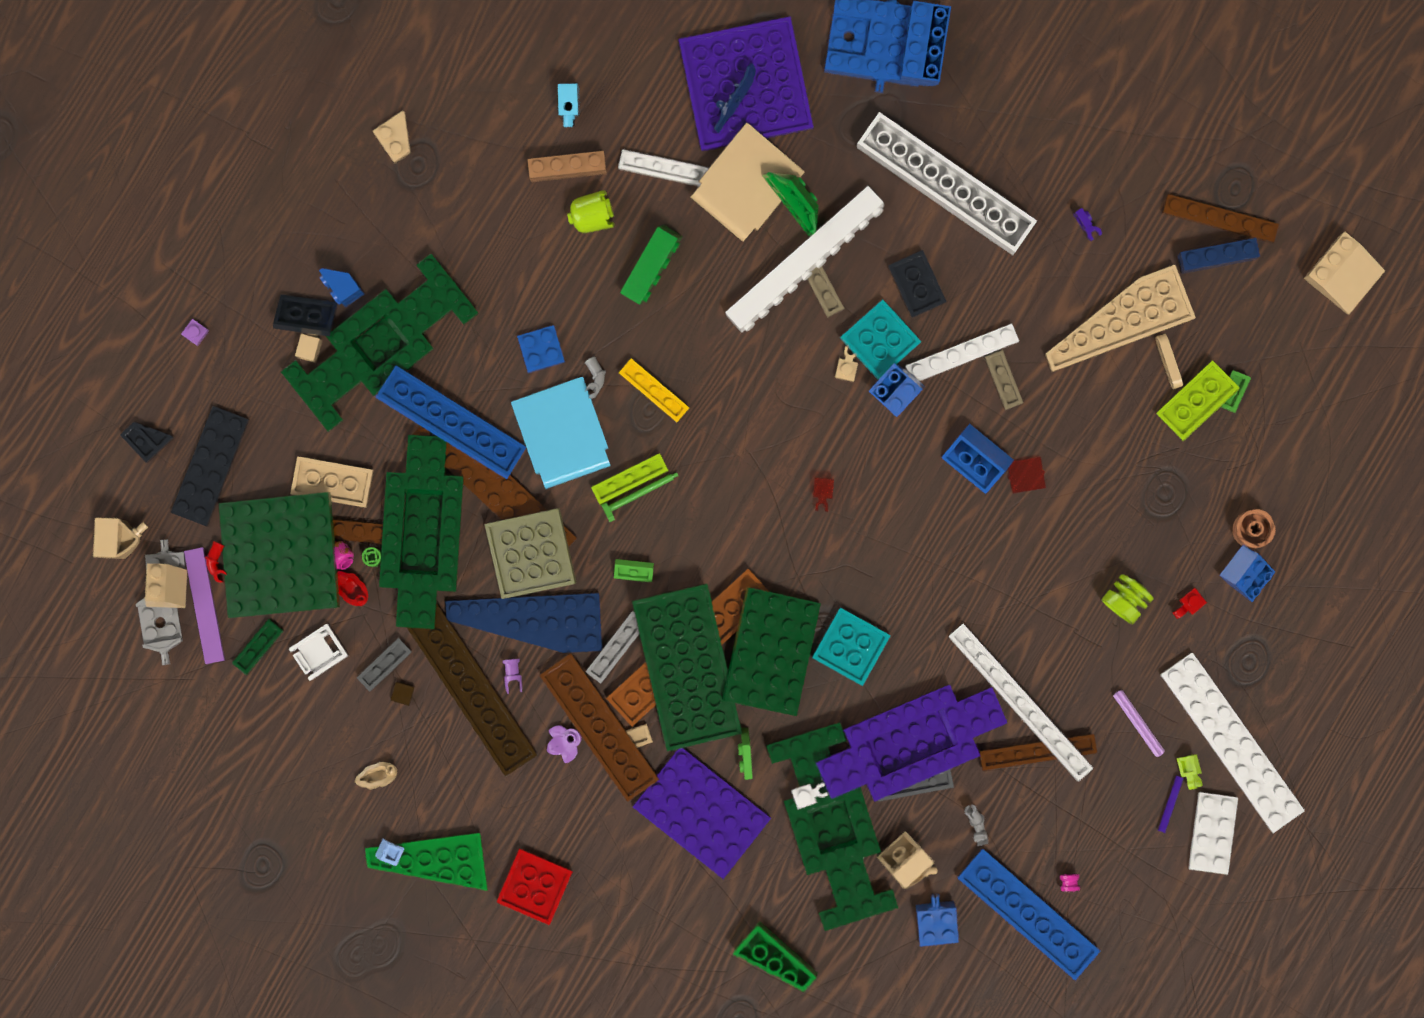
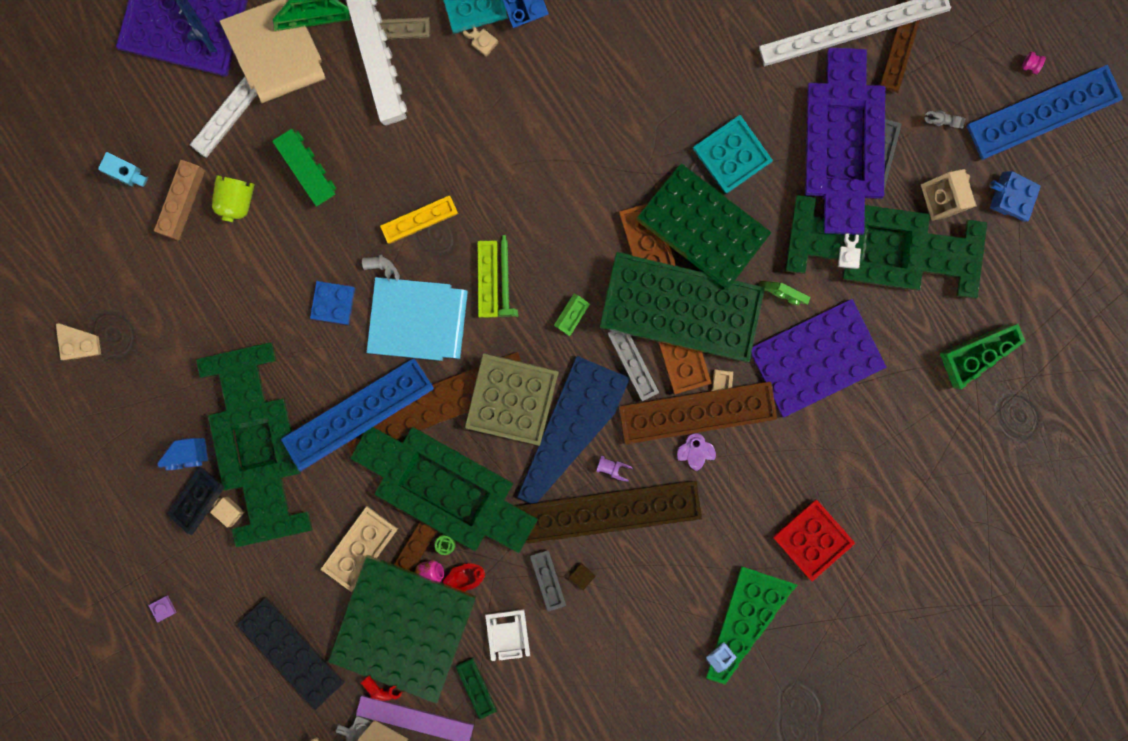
camera: 60 degrees left, 0 degrees up
(145, 440) = (238, 701): black wing -> none
(377, 775) = (645, 635): tan arm -> none
(823, 489) = (582, 112): clear red plate -> none

